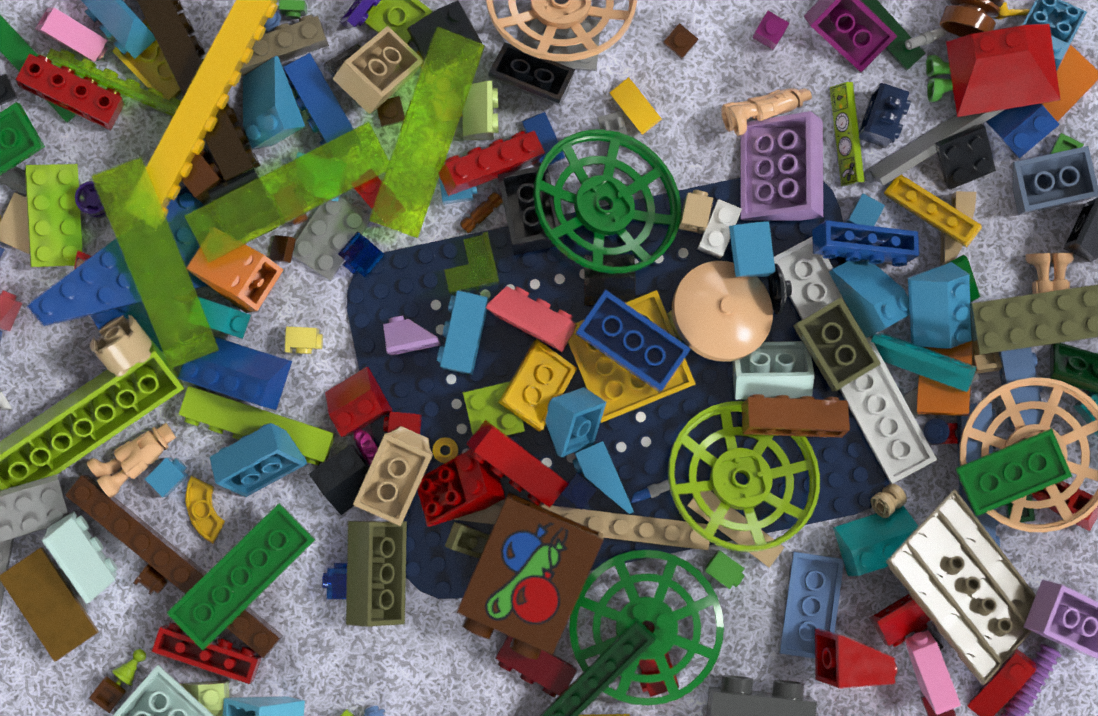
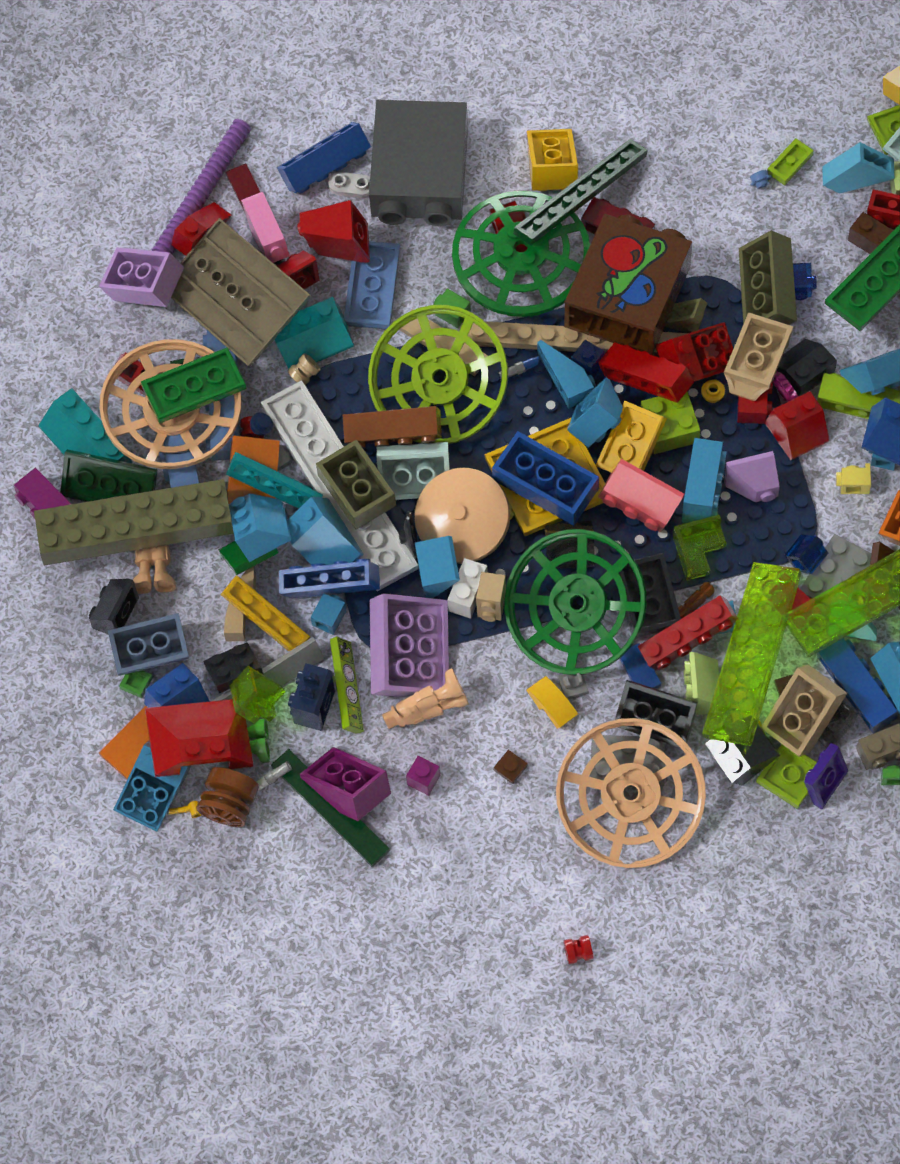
camera: 175 degrees left, 20 degrees down
(947, 117) = (255, 695): none -> clear neon green panel

